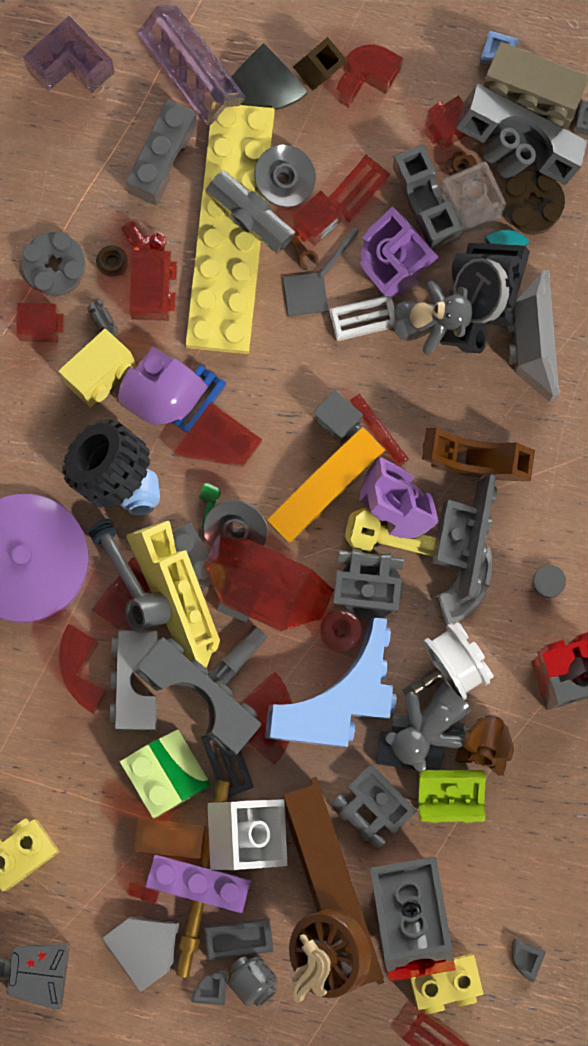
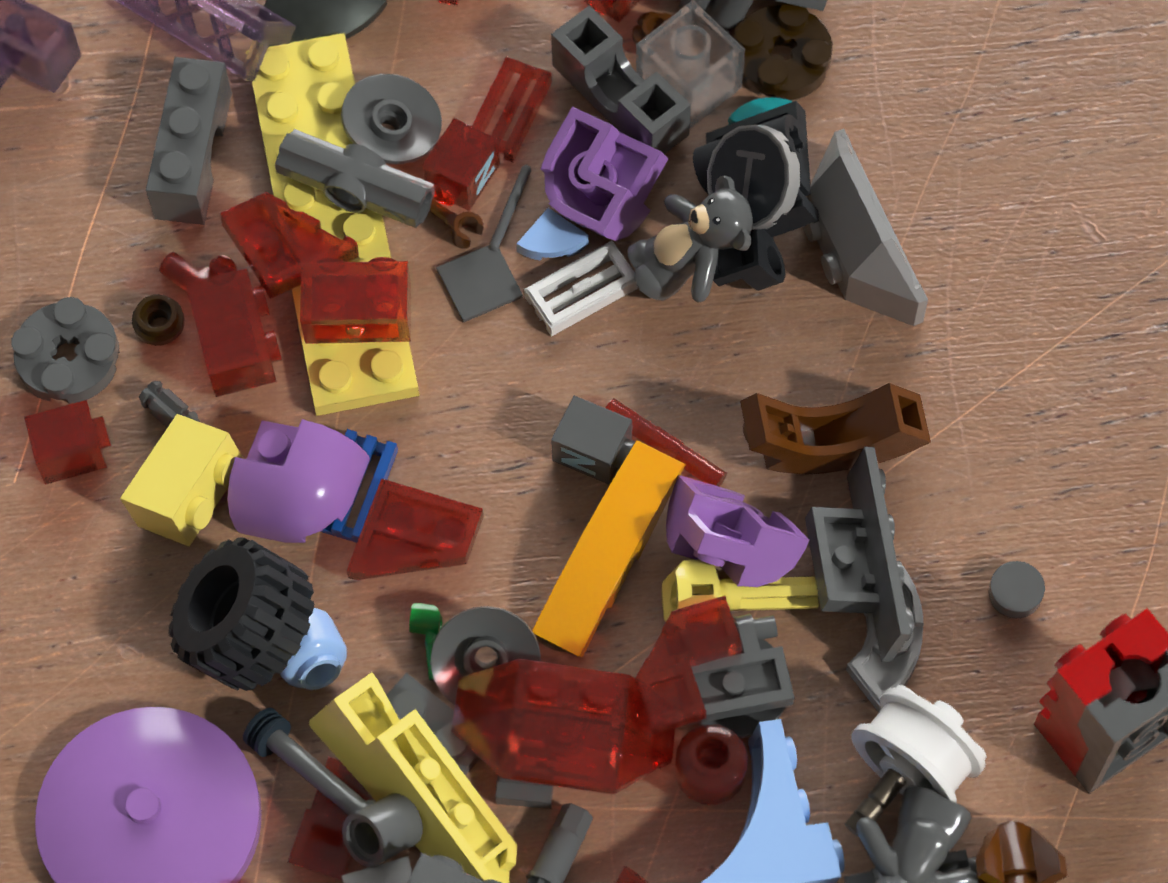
camera: 15 degrees left, 15 degrees down
(197, 240) = (280, 239): none -> clear red wing
(226, 292) = (355, 301): none -> clear red brick
(330, 576) = (687, 640): none -> clear red tile
(355, 281) = (551, 238): none -> light blue tile

